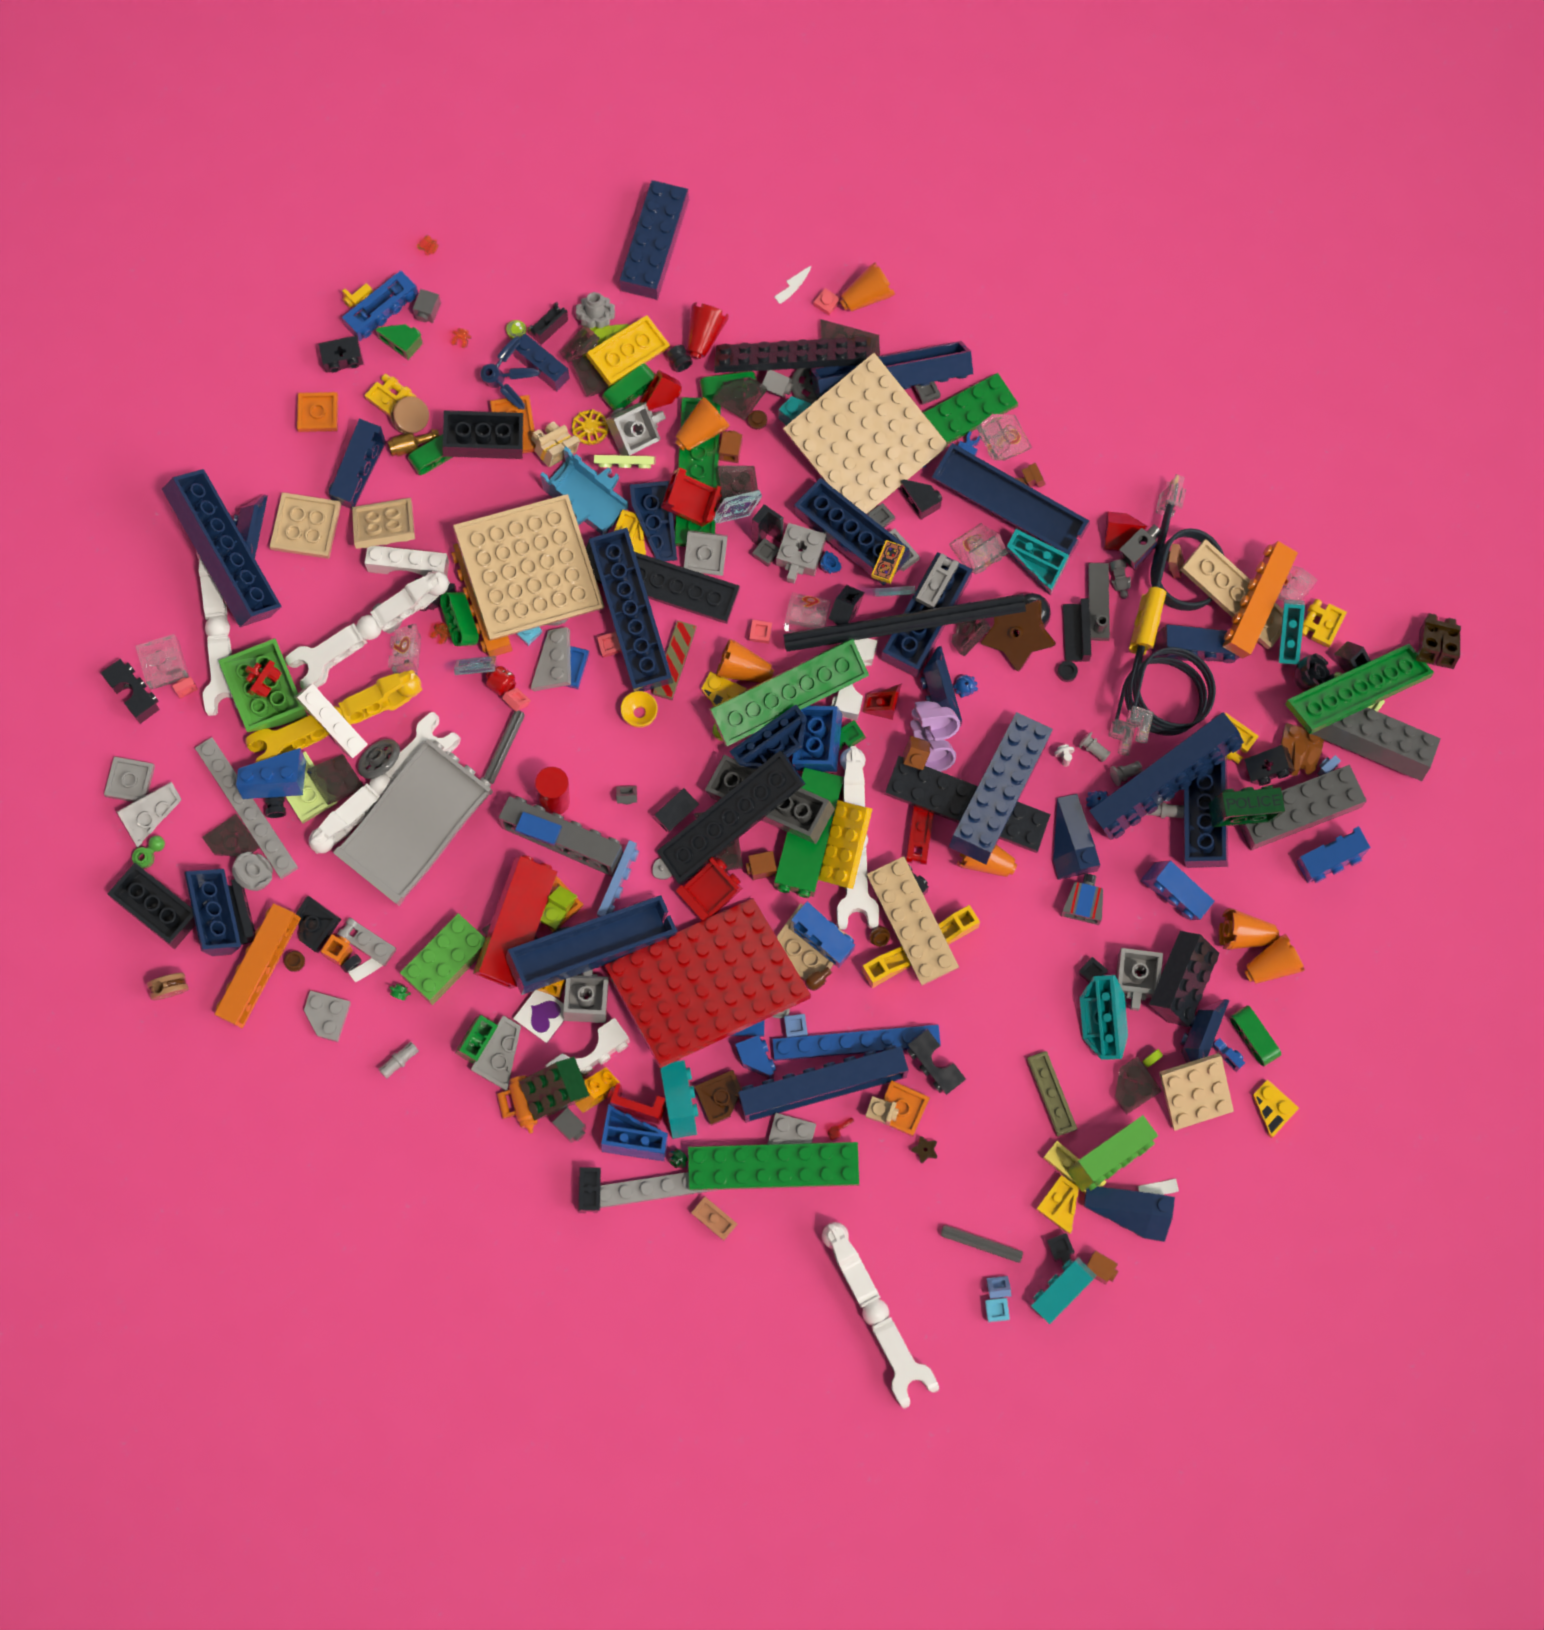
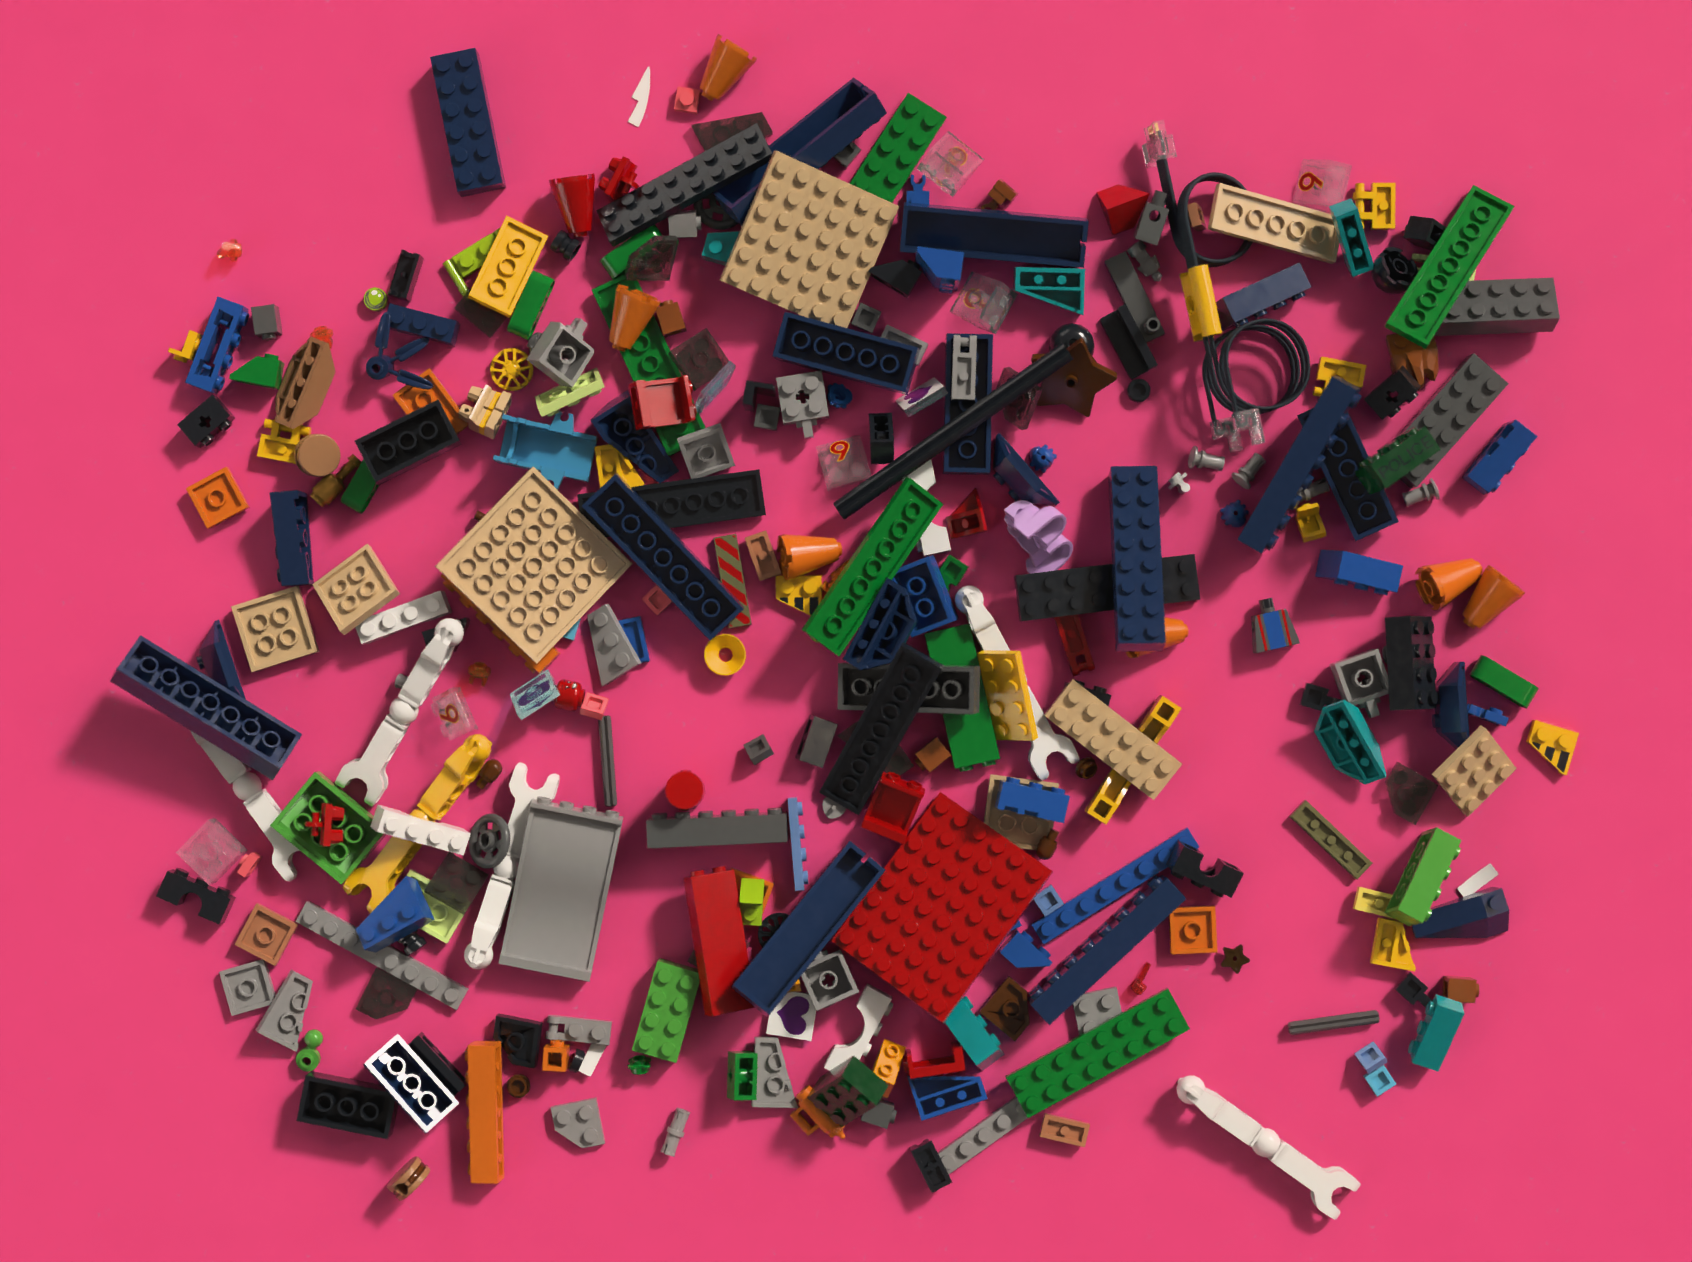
camera: 30 degrees left, 15 degrees up
(167, 746) = (266, 934): none -> nougat plate
(252, 871) = (426, 1020): light grey tile -> none
(407, 710) = (489, 773): none -> reddish brown cylinder
(431, 361) = (305, 384): none -> medium nougat wedge
(459, 619) = (491, 652): green beam -> none
(538, 828) = (694, 841): blue tile -> none
(579, 344) = (454, 285): clear smoke plate -> none
(595, 311) = (448, 237): light grey plant -> none
(661, 391) = (566, 295): red slope -> none
(677, 1158) = (999, 1090): dark green plate -> none
(708, 651) = (763, 555): none -> nougat plate
(747, 331) = (622, 179): none -> red hips
(757, 419) = (682, 273): reddish brown plate -> none
(760, 631) = (805, 507): coral plate -> none
(882, 1111) = (1176, 945): tan bracket -> none
(888, 562) = (904, 374): tile -> none
(916, 752) = (1033, 564): dark orange brick -> none
(958, 501) = (940, 267): none -> blue slope
(1073, 842) = (1231, 572): dark blue wedge -> none
(1152, 1058) = (1413, 755): lime tile -> none
(1155, 833) = (1310, 522): none -> yellow bracket
(1257, 856) = (1422, 493): none -> light grey pin
(1260, 599) = (1304, 219): orange brick -> none
(1328, 765) = (1450, 362): medium blue plate -> none
(1439, 642) = (1505, 169): dark brown hips -> none

